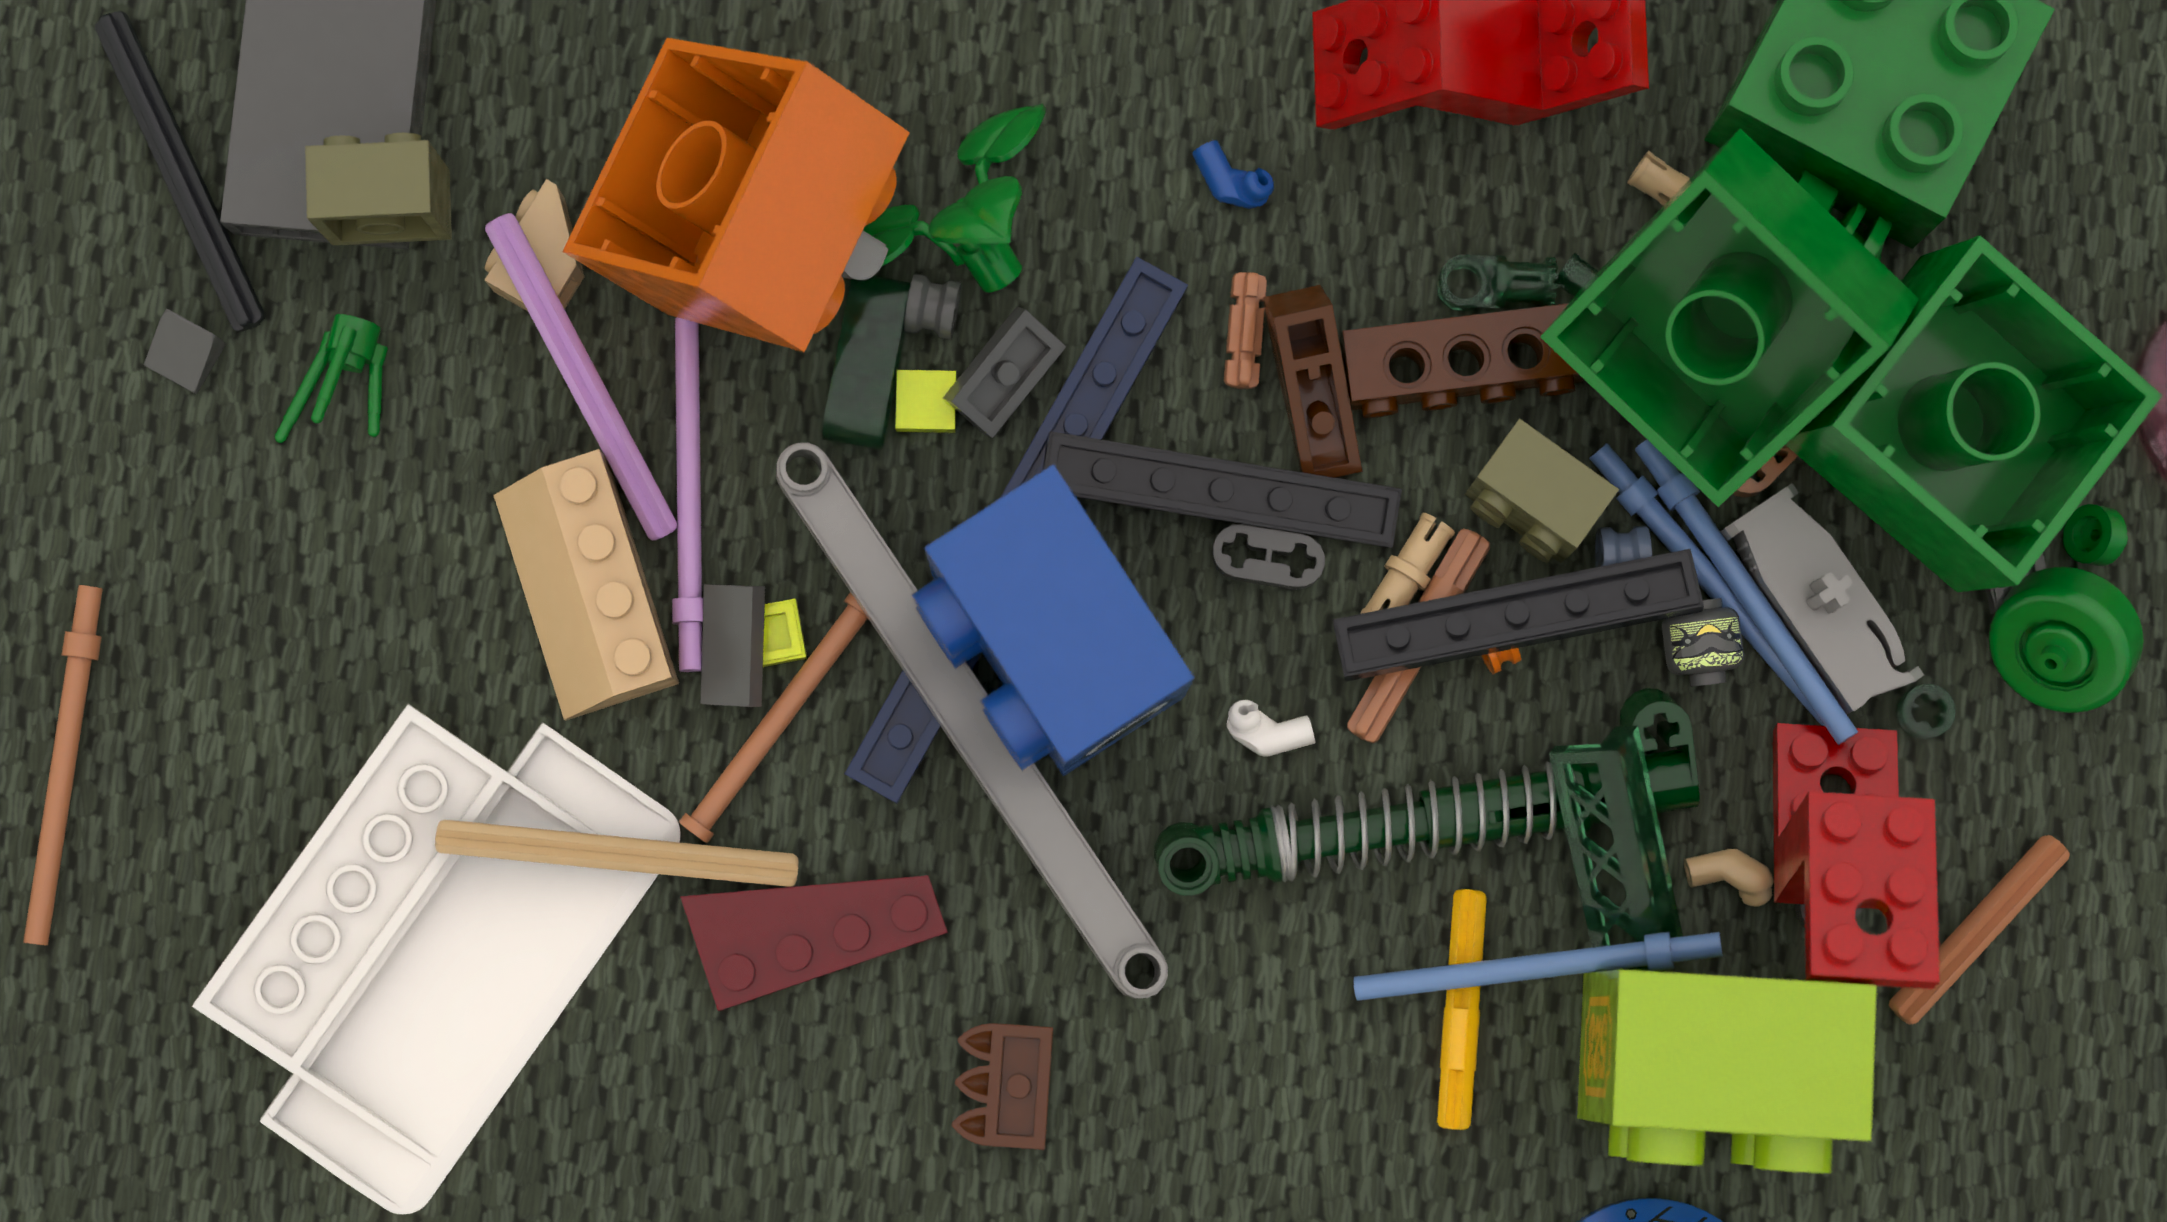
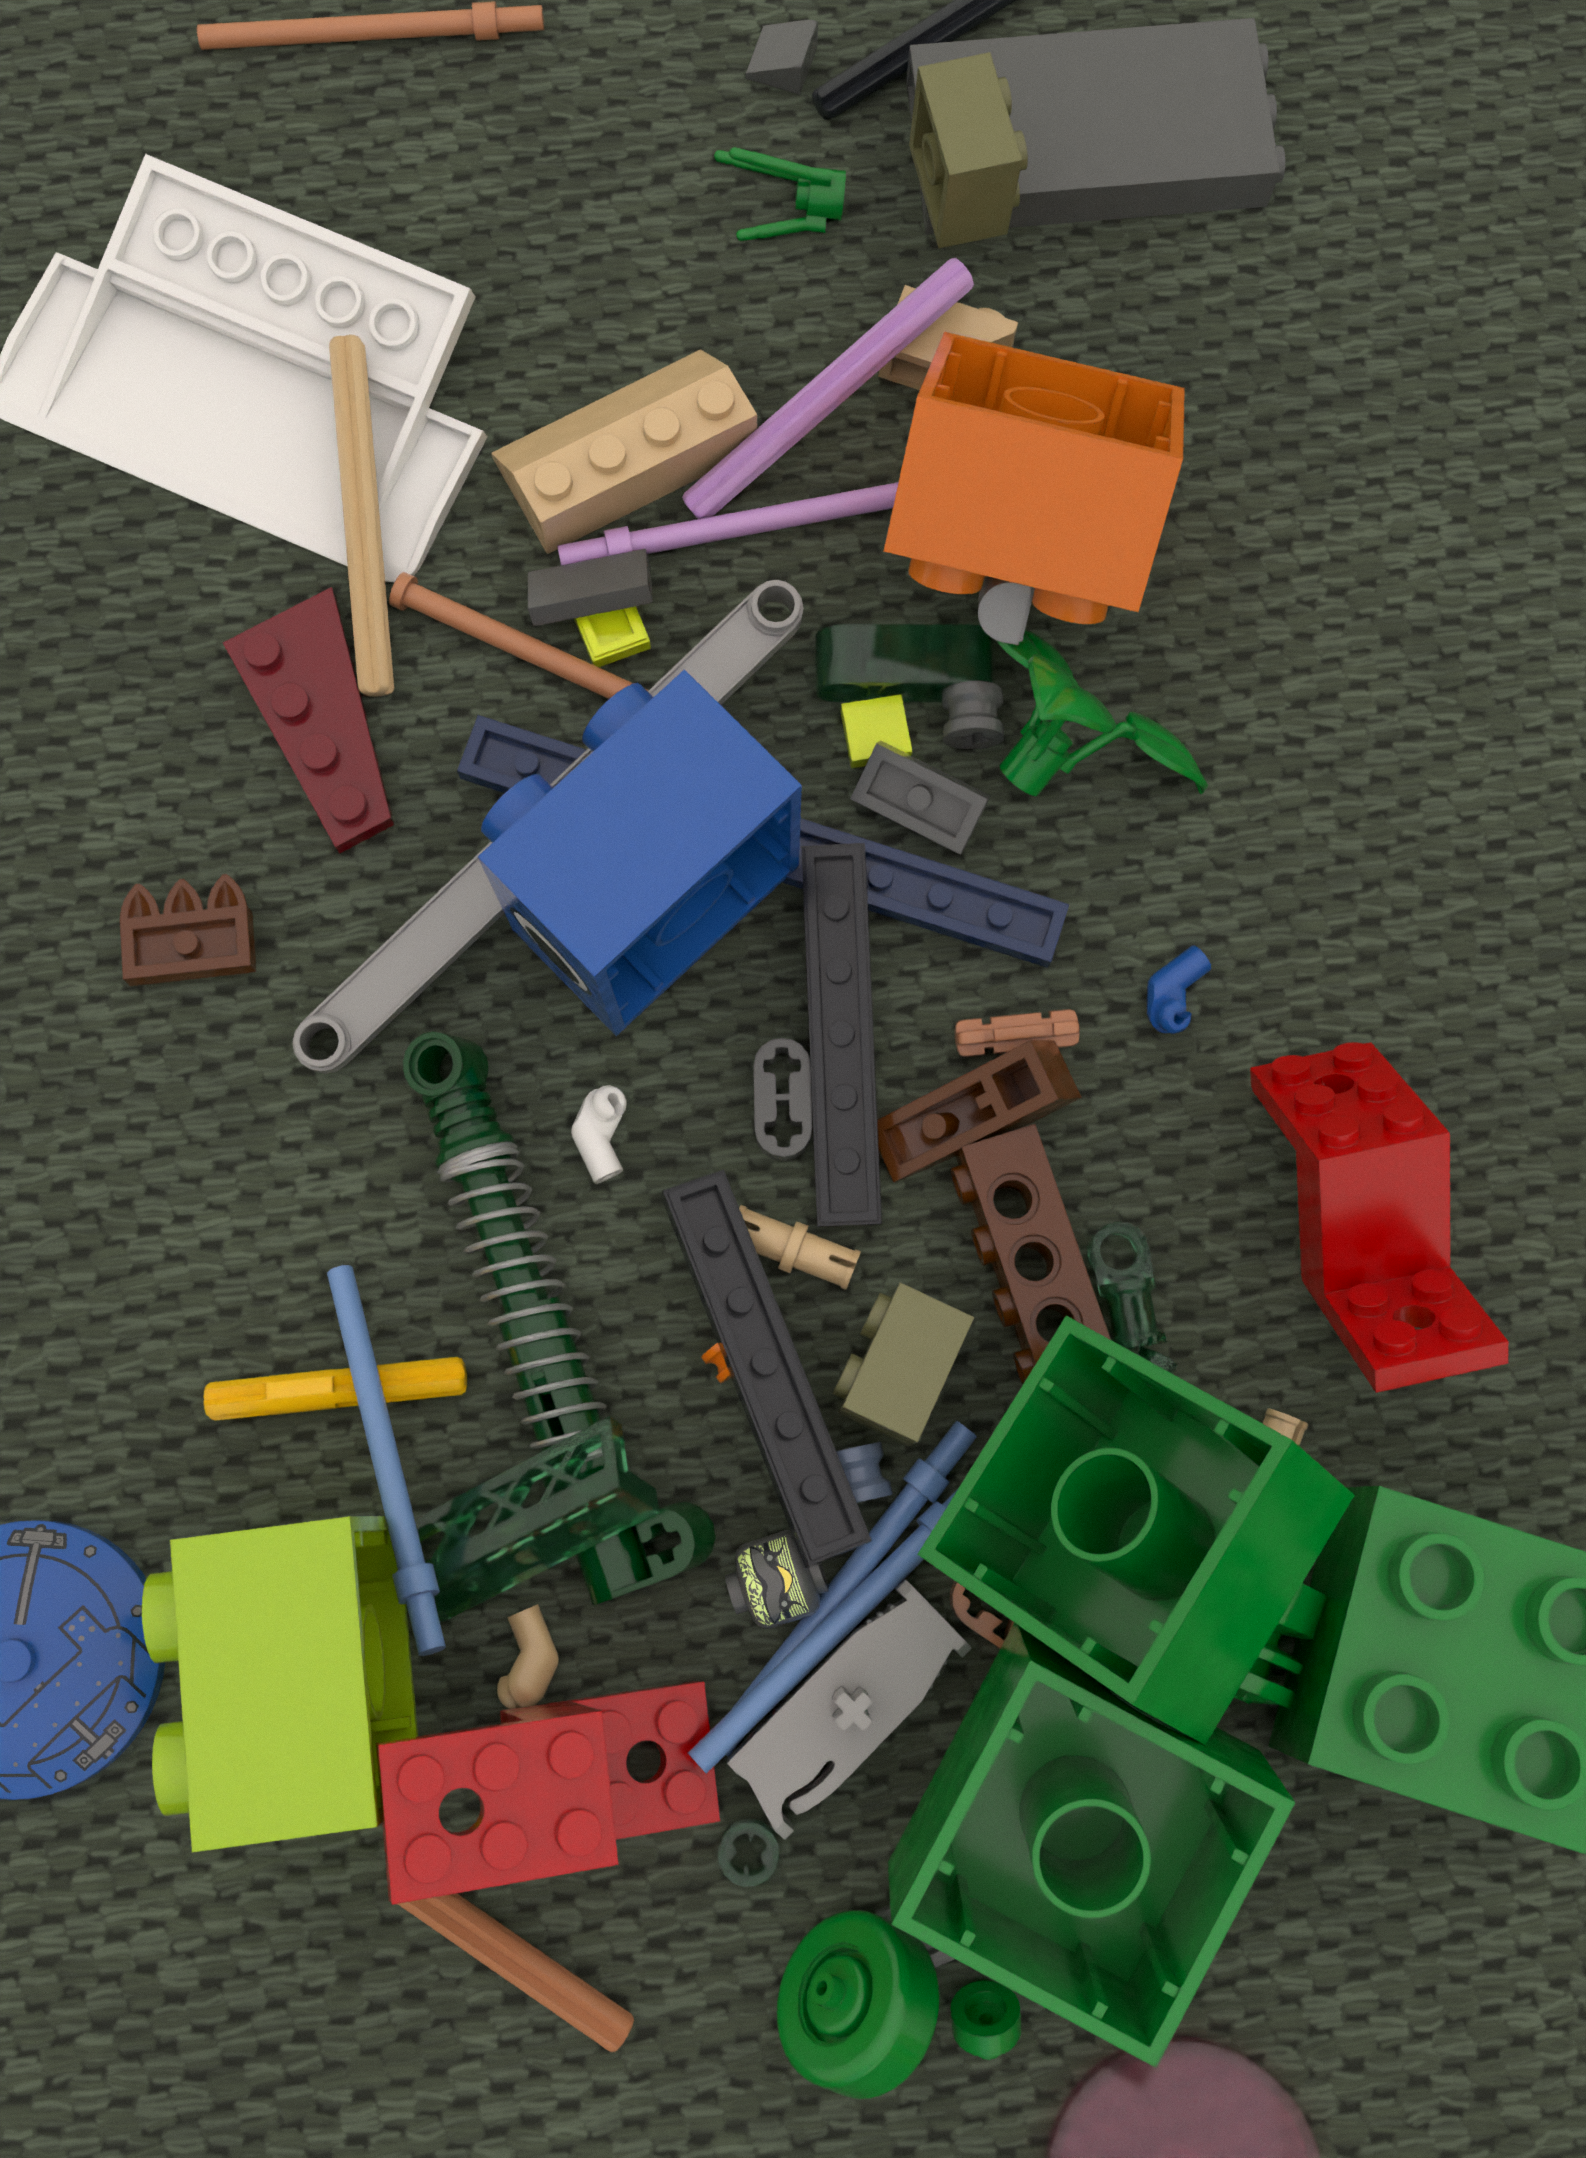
camera: 75 degrees right, 5 degrees down
(1389, 689) = (792, 1292): nougat axle -> none

